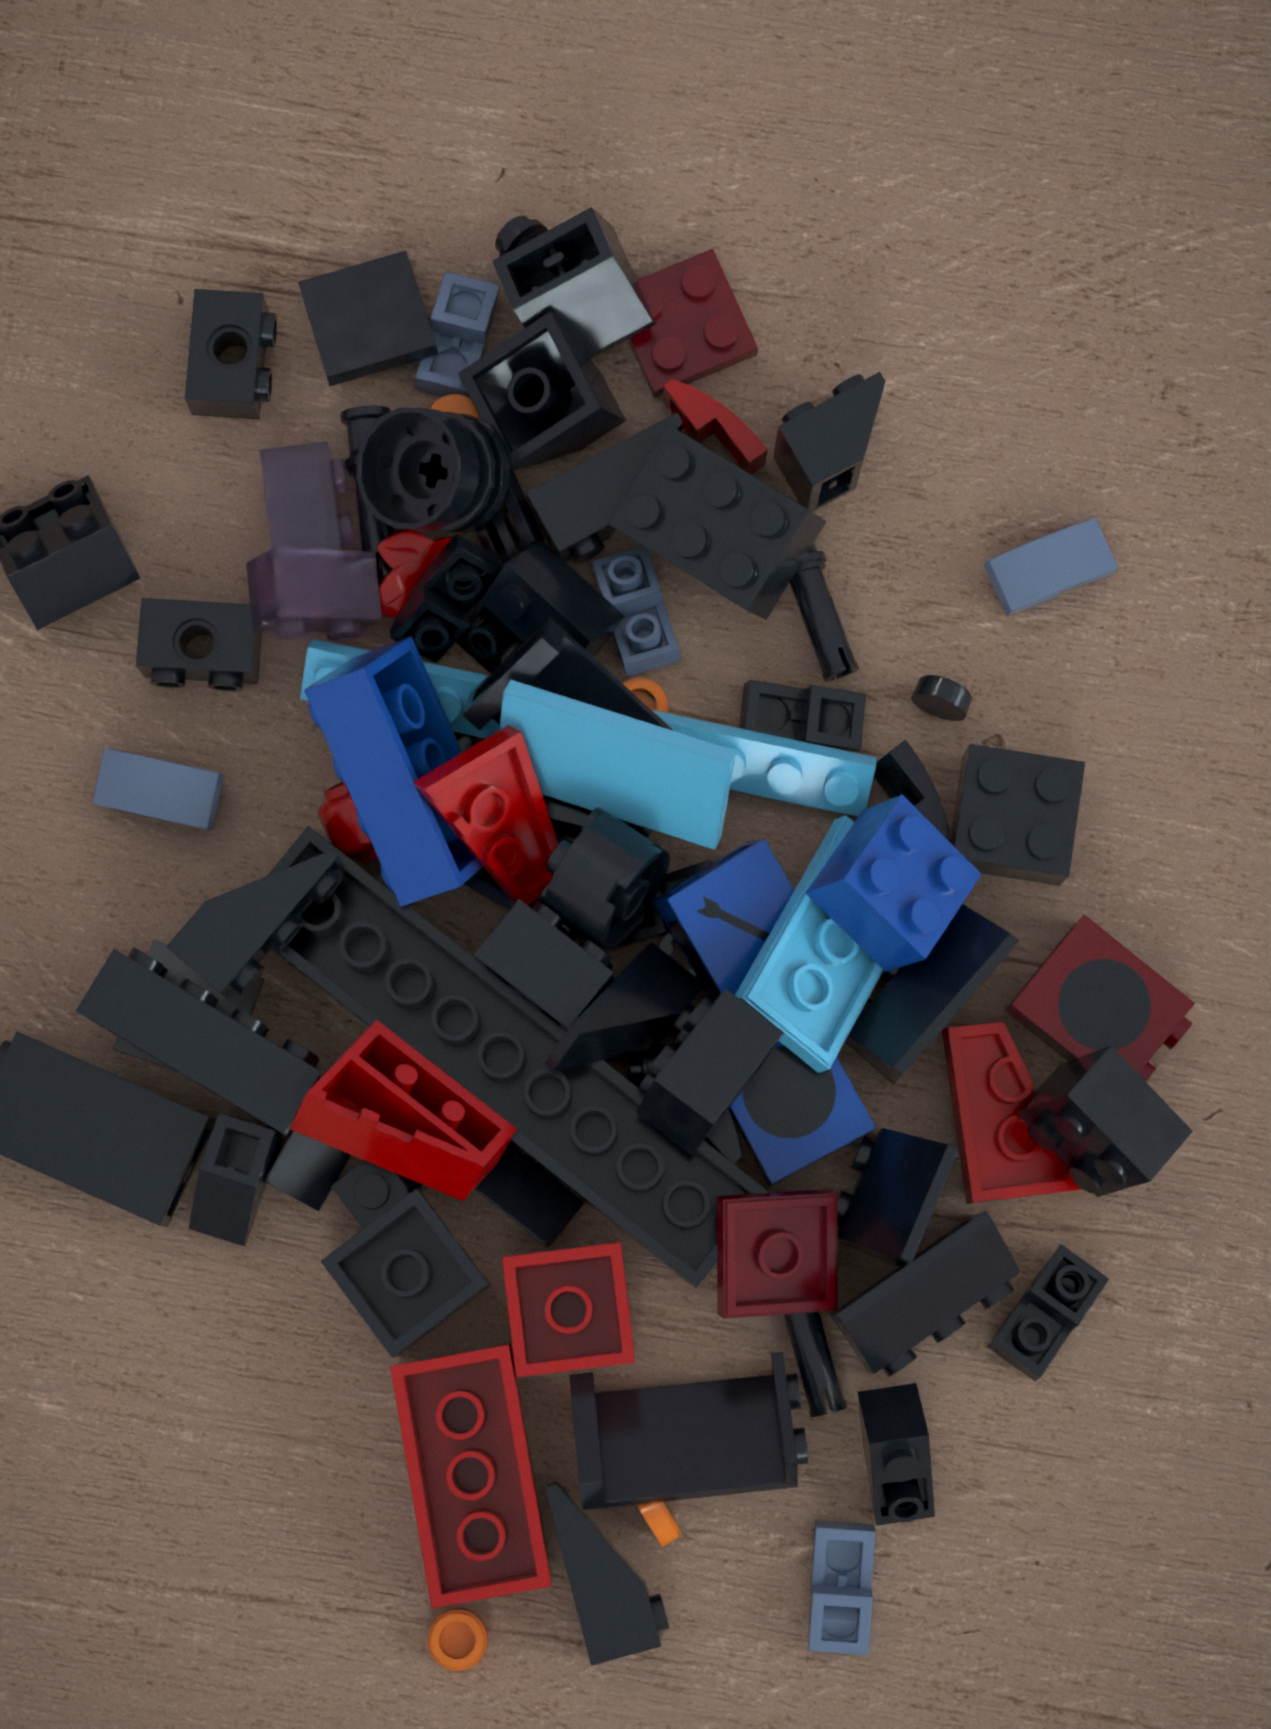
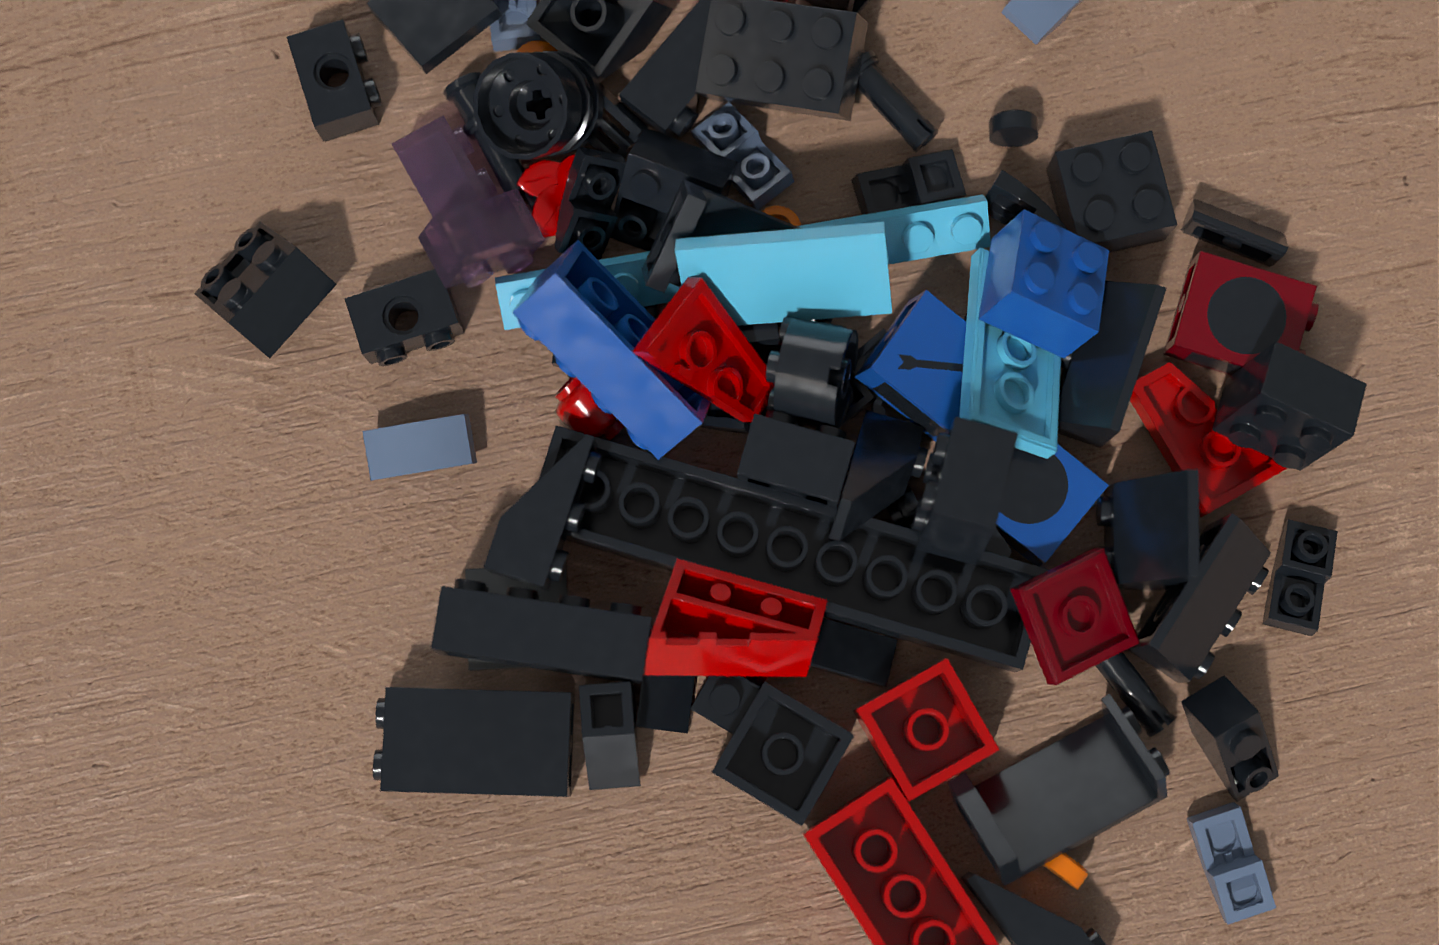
camera: 20 degrees left, 0 degrees up
(1138, 907) = (1234, 233): none -> black slope

